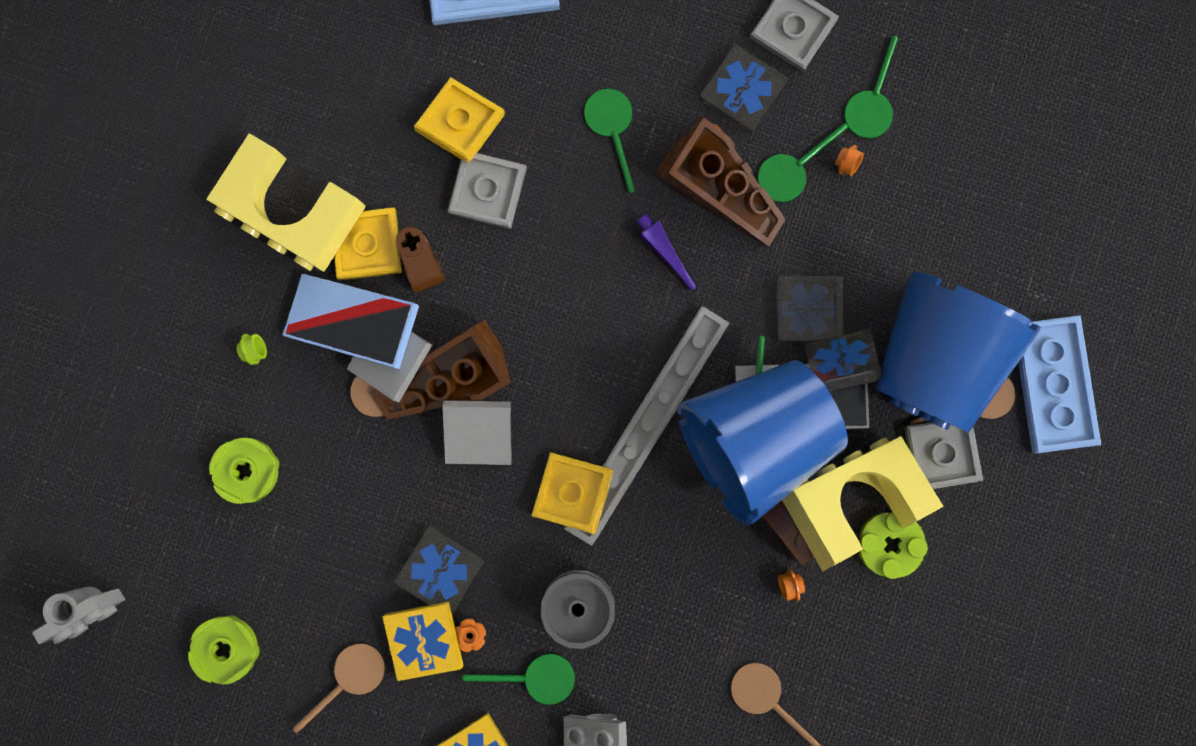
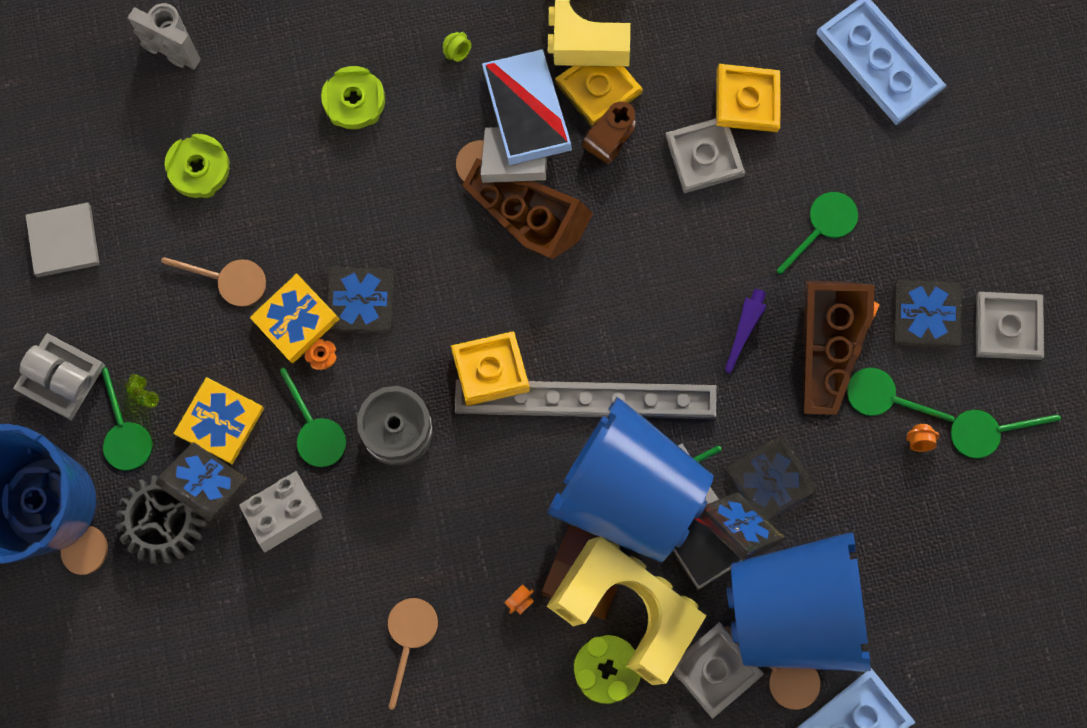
camera: 65 degrees right, 10 degrees down
(477, 432) = (494, 260): light grey tile -> none

